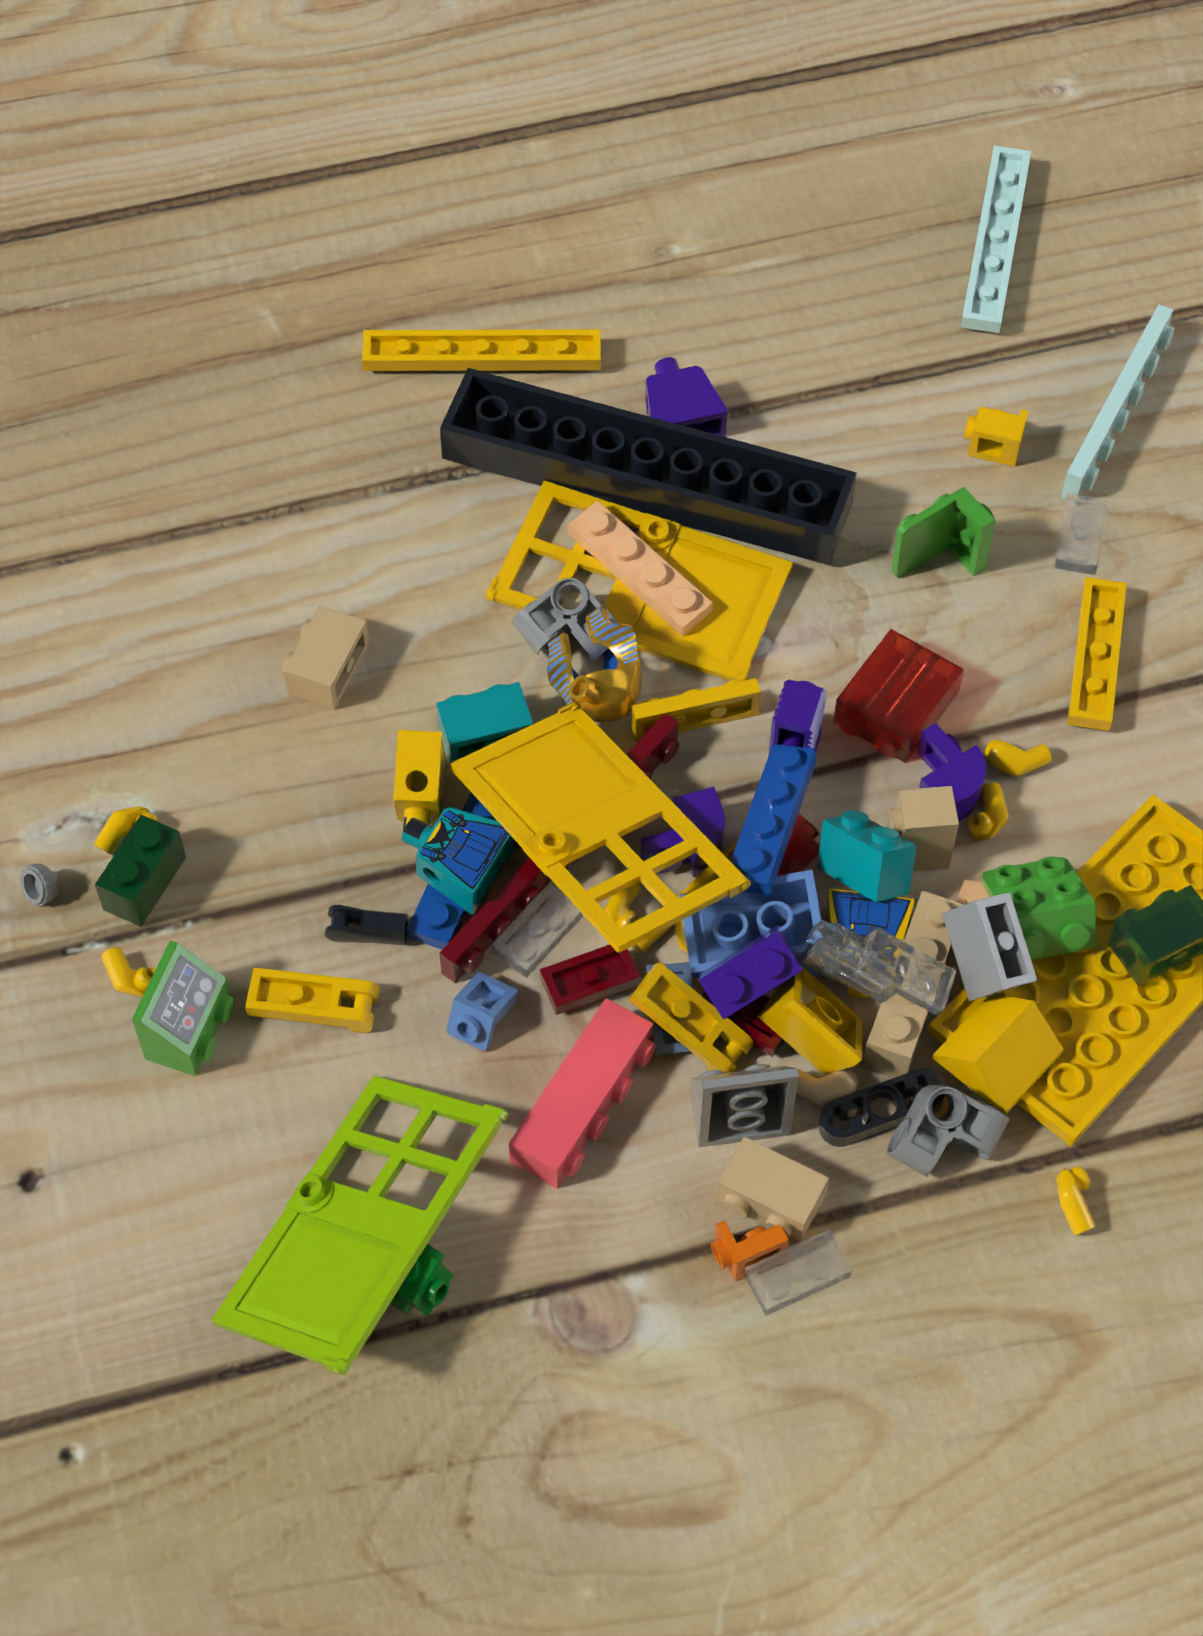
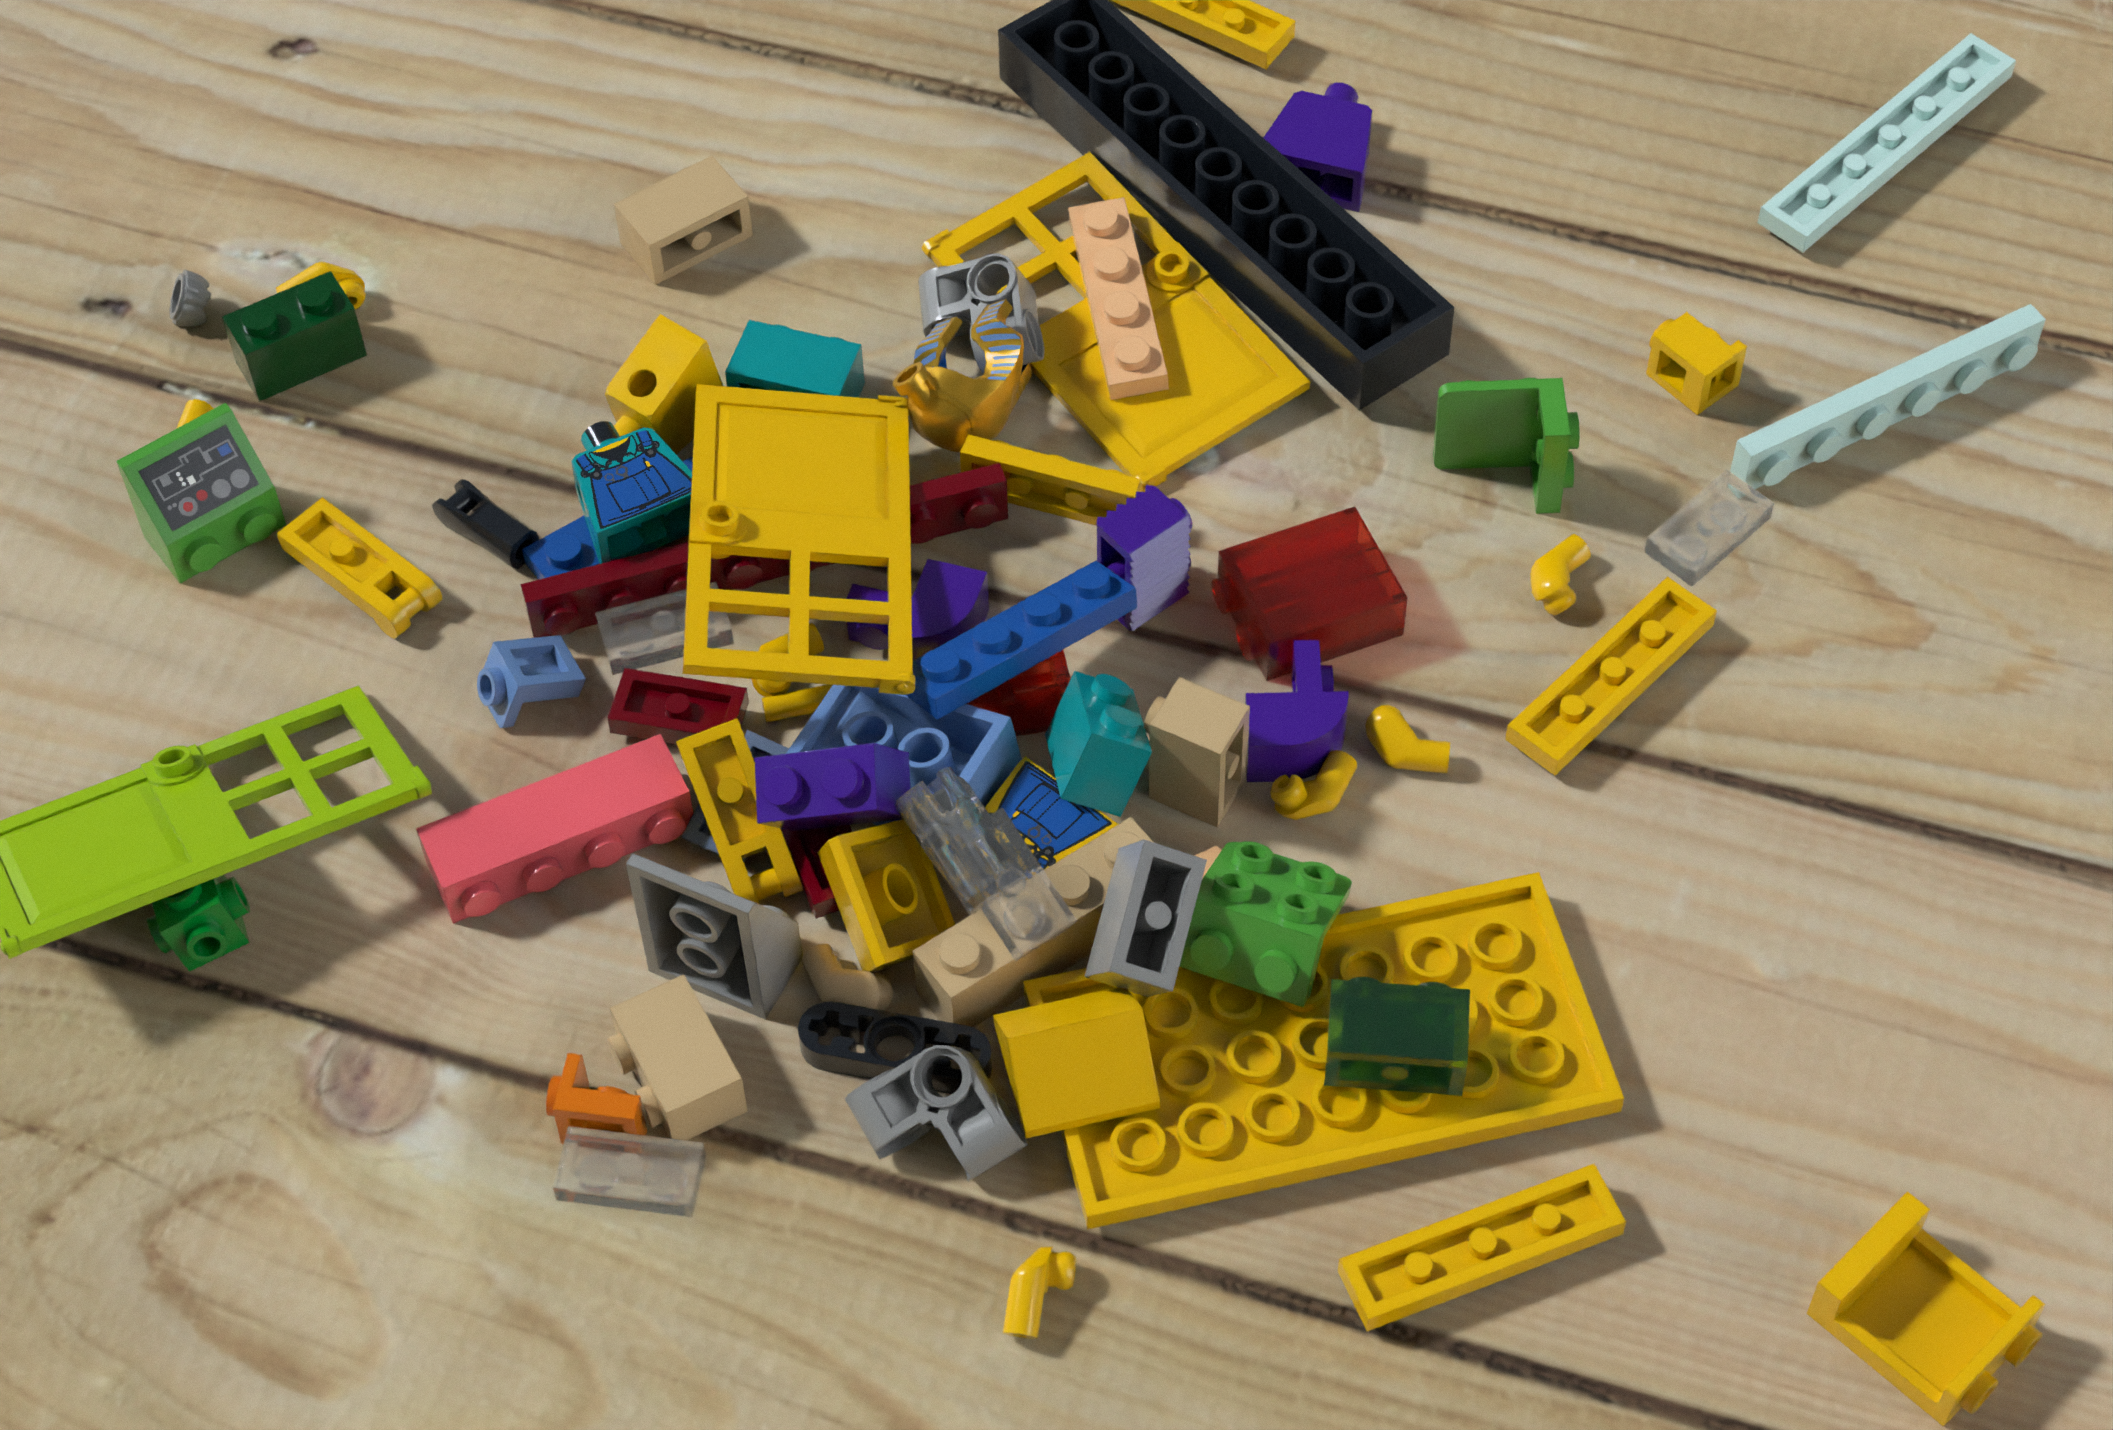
camera: 35 degrees right, 5 degrees down
(1017, 610) = (1551, 574): none -> yellow arm

